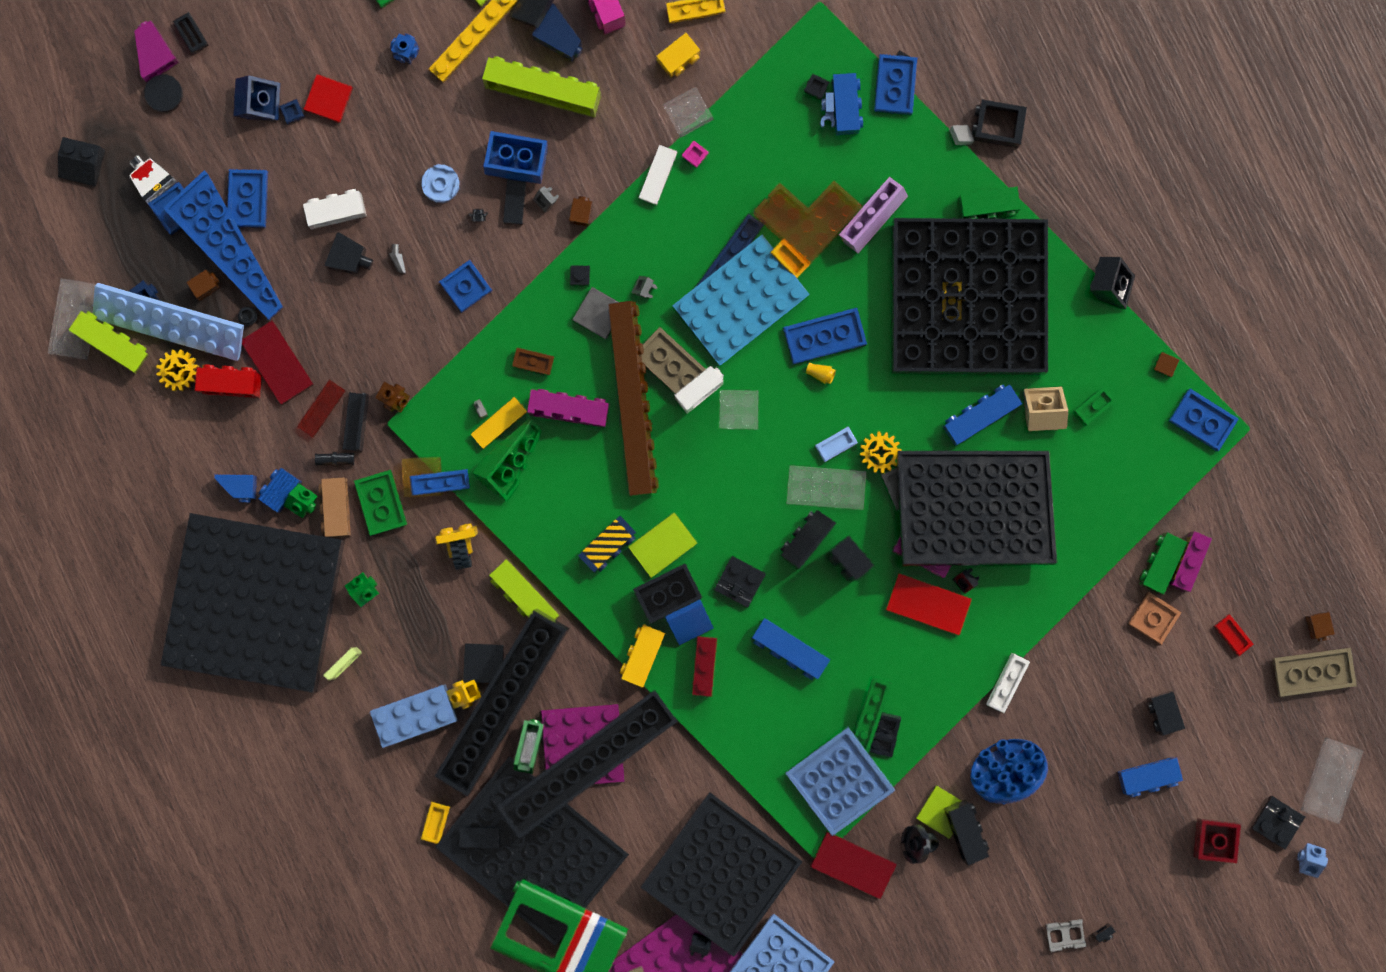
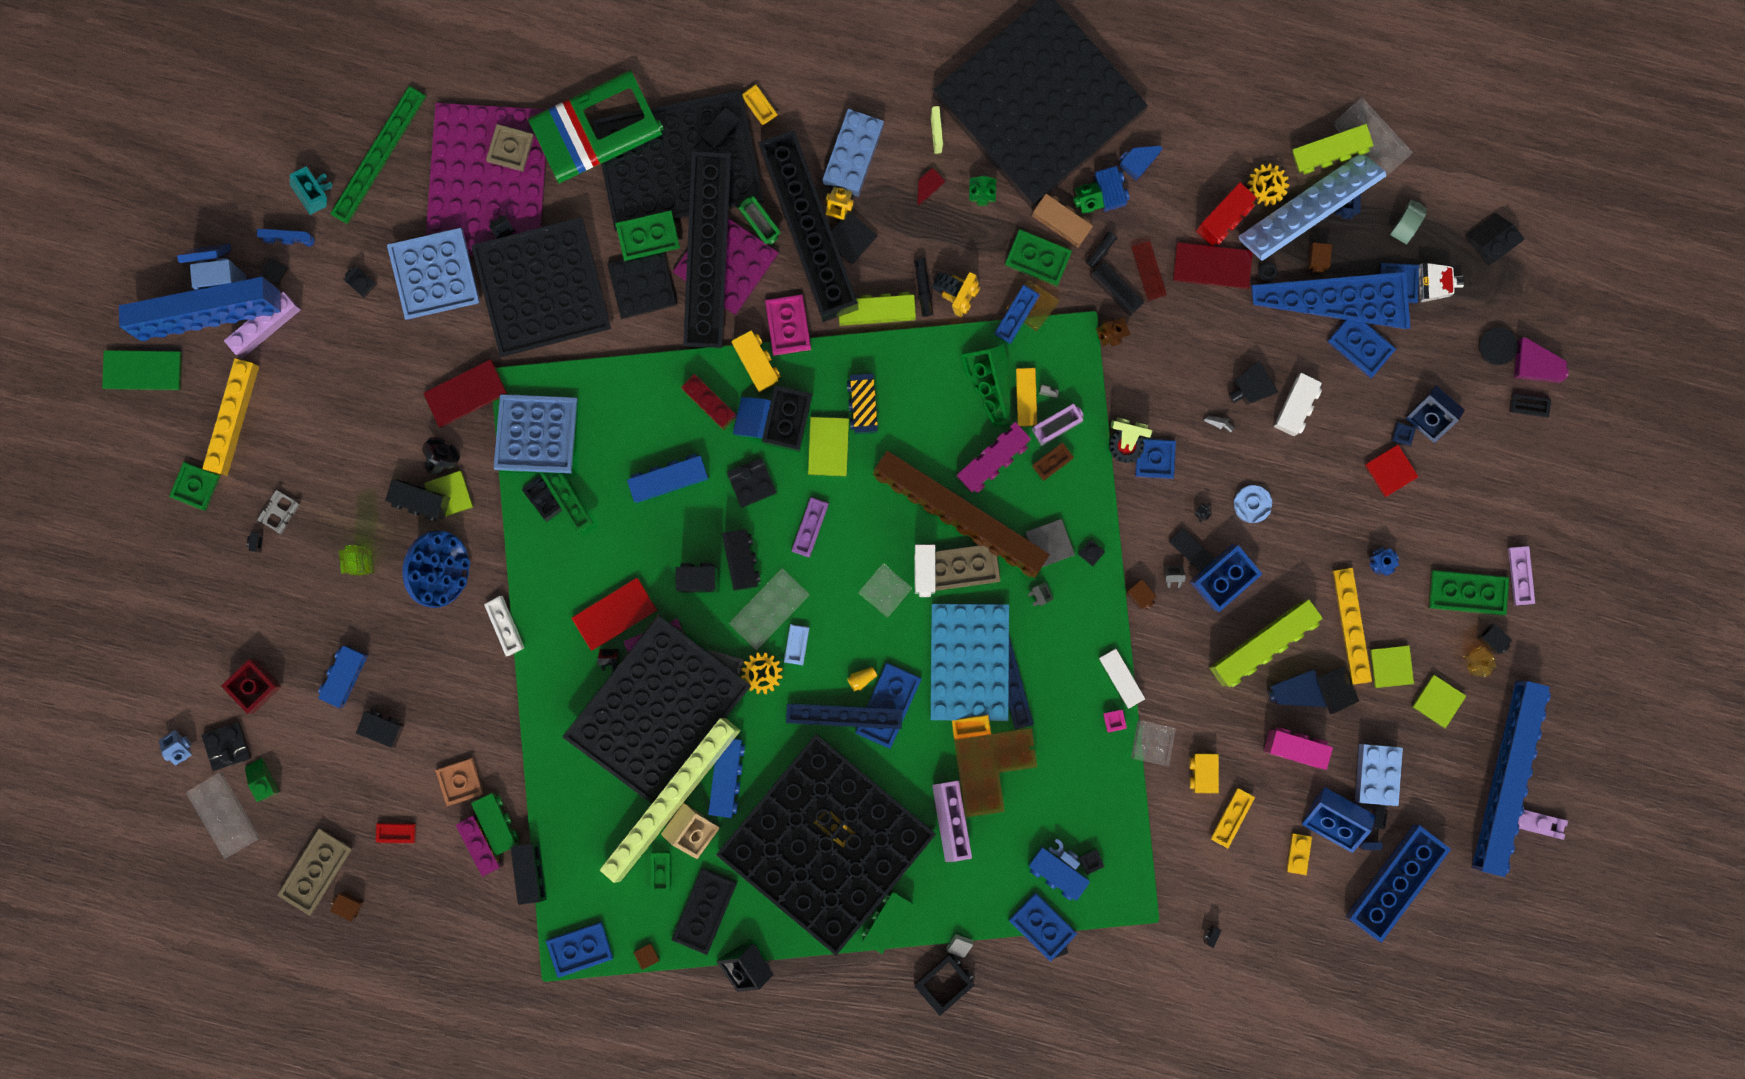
camera: 130 degrees right, 0 degrees up
(119, 237) = (1409, 221): none -> sand green brick
(391, 636) = (928, 185): none -> dark red tile
(469, 317) = (1126, 443): none -> plate
(473, 577) = (923, 288): none -> black pin
(500, 380) = (1058, 424): none -> lavender window
(592, 655) = (787, 324): none -> dark pink tile
(612, 823) = (647, 235): none -> green plate
(653, 797) = (642, 285): none -> black plate
(737, 508) = (810, 527): none -> medium lavender tile
(861, 361) = (844, 716): none -> dark blue plate
(1035, 441) = (670, 800): none -> yellowish green brick
(1054, 838) = (356, 561): none -> clear neon green arch
(1096, 348) = (704, 911): none -> black tile
(1180, 505) = (528, 873): none -> black panel
(1281, 773) = (260, 780): none -> green slope

